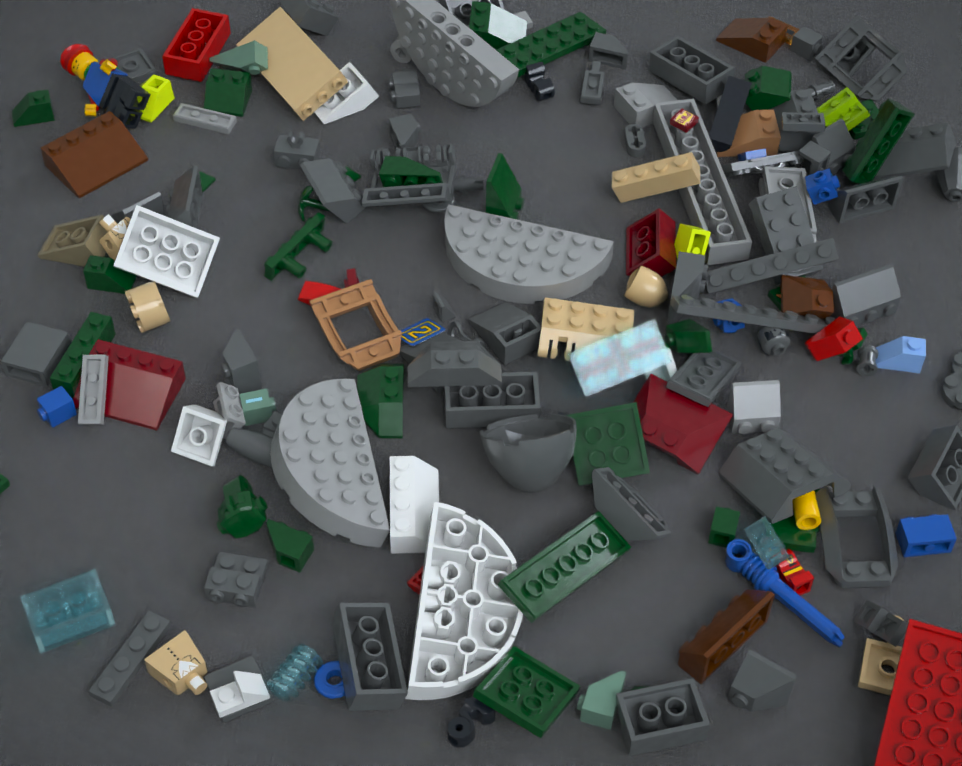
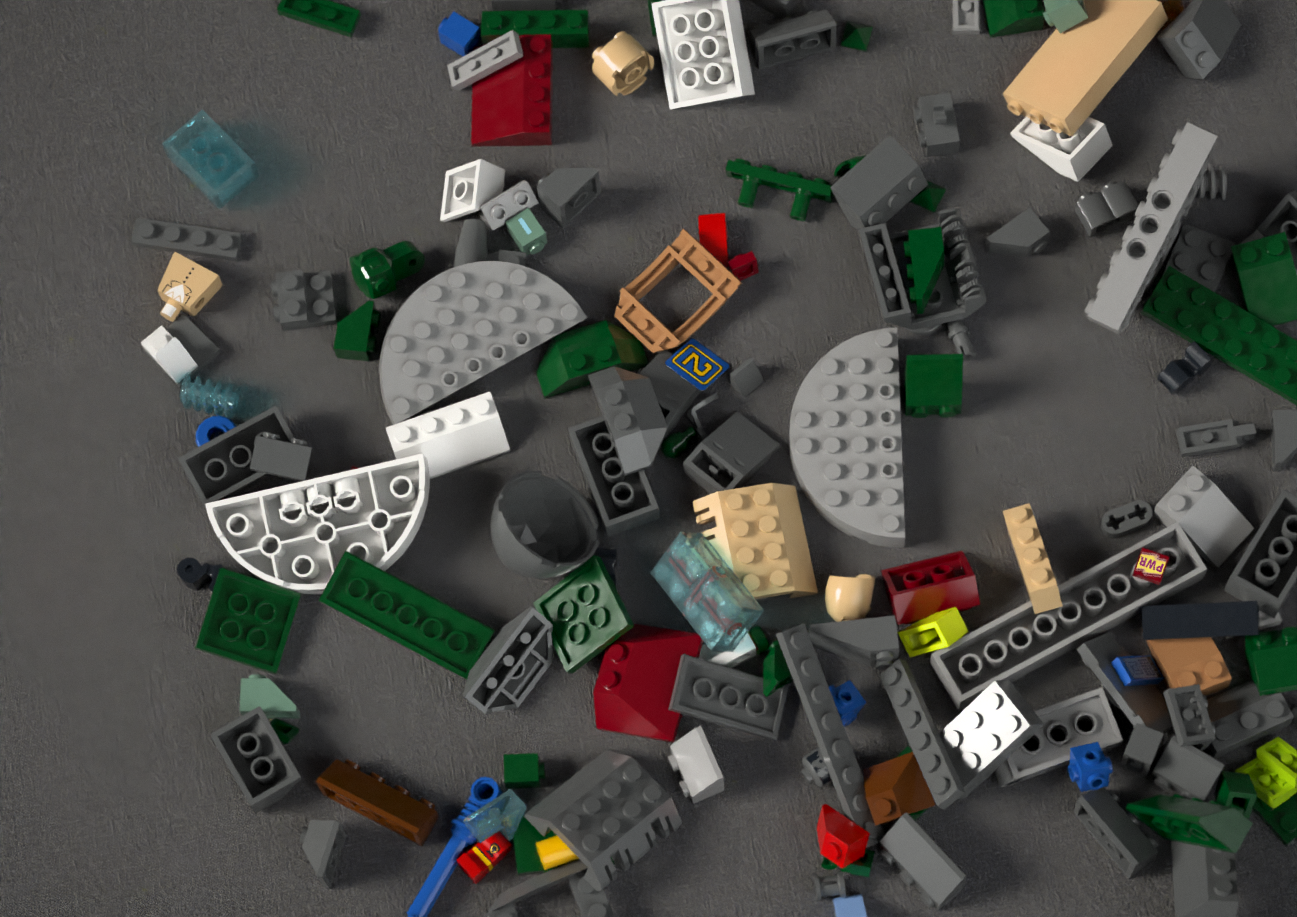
camera: 80 degrees right, 20 degrees up
(390, 613) = (281, 457): none -> dark grey brick
(857, 127) = (1236, 790): none -> dark green brick

